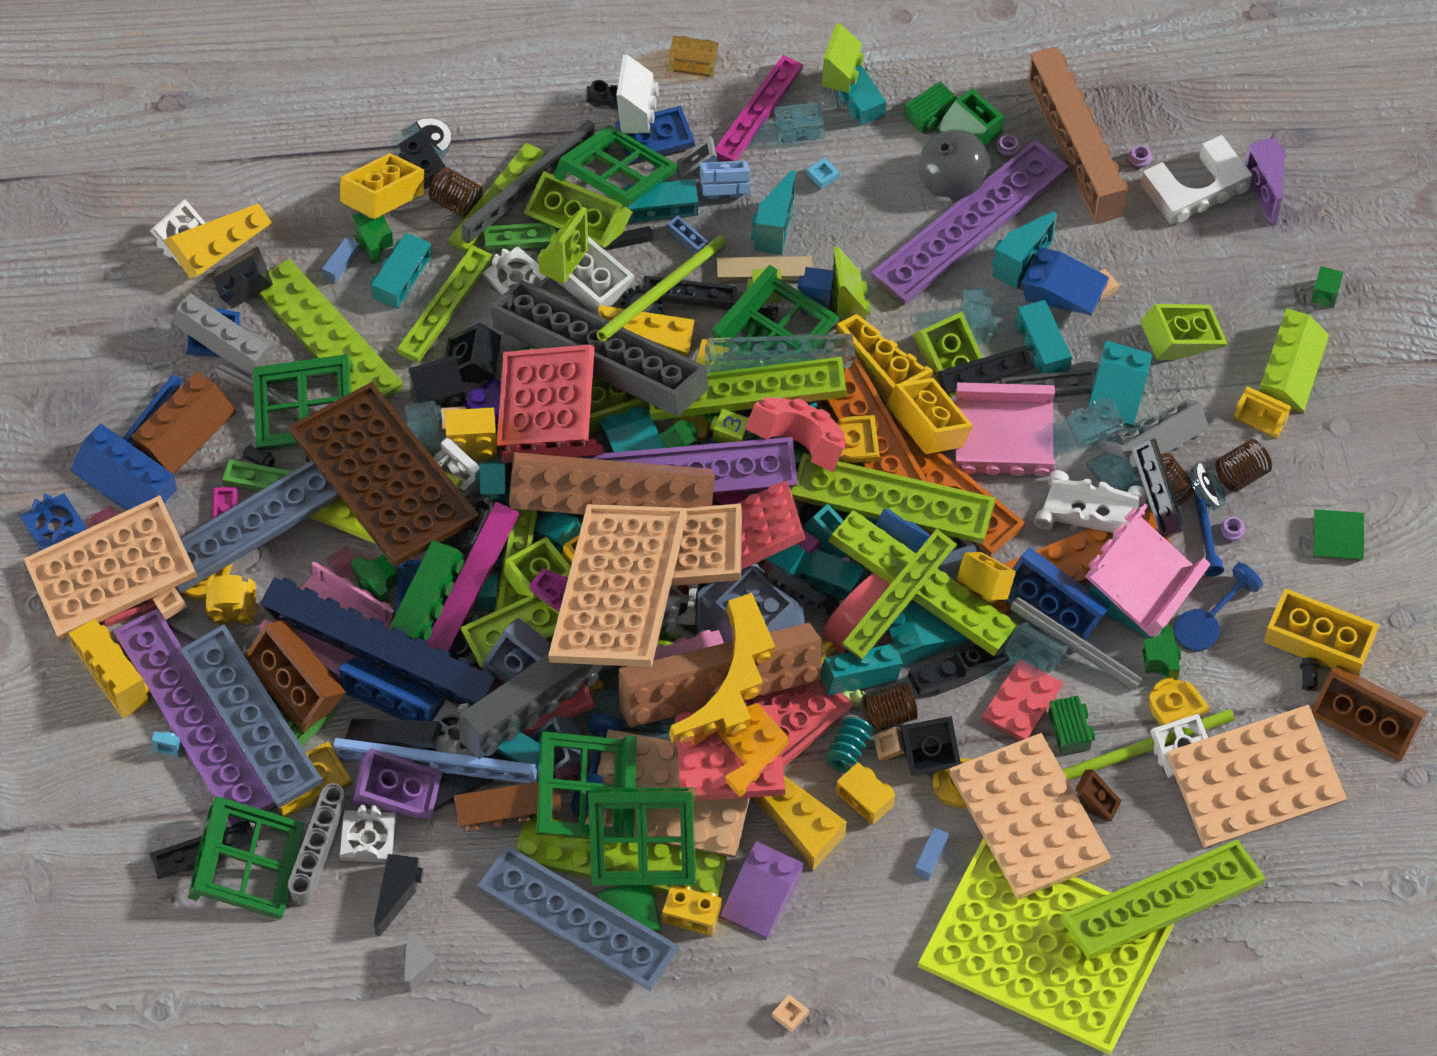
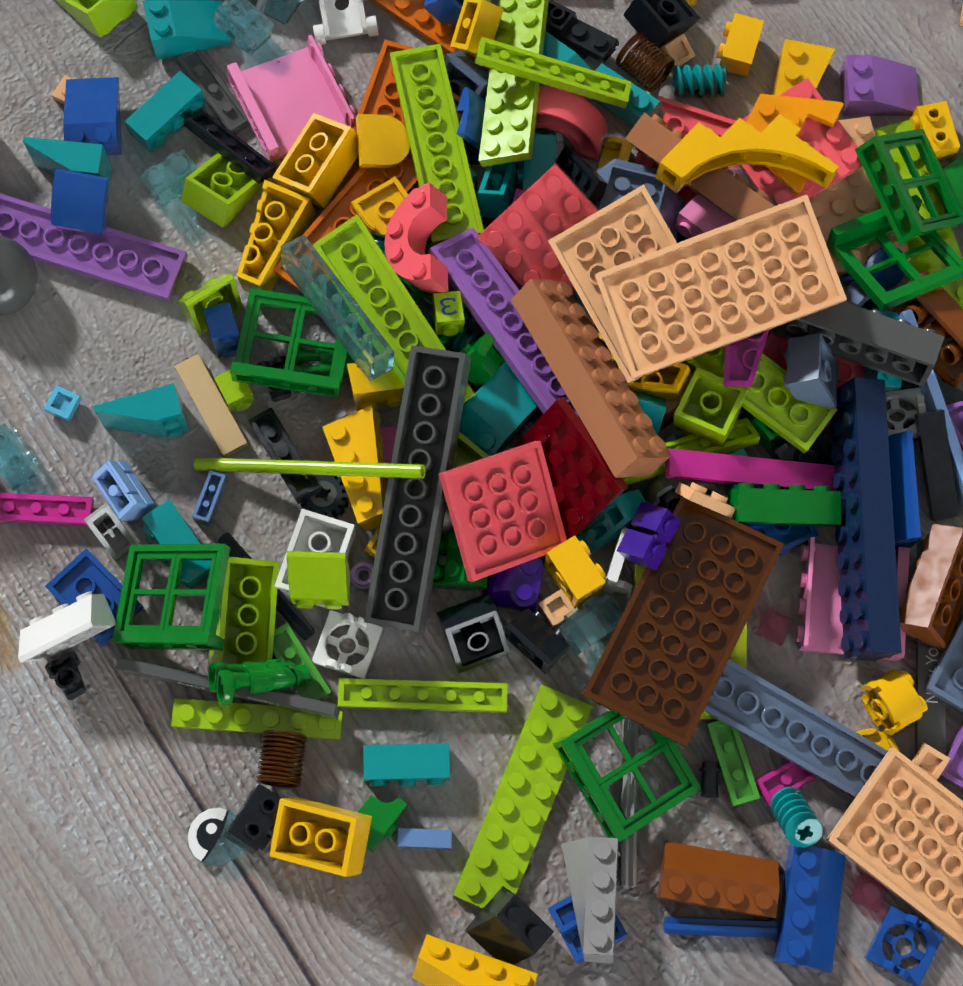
camera: 120 degrees left, 15 degrees up
(192, 488) = (796, 817): none -> teal piece
(375, 576) = (782, 583): green brick -> none
(462, 476) = (648, 546): none -> dark purple piece
(464, 525) = (698, 495): none -> light nougat plate
(520, 192) = (256, 676): none -> green piece
(916, 456) = (381, 141): none -> yellow tile
(983, 235) = (79, 201): none -> blue slope

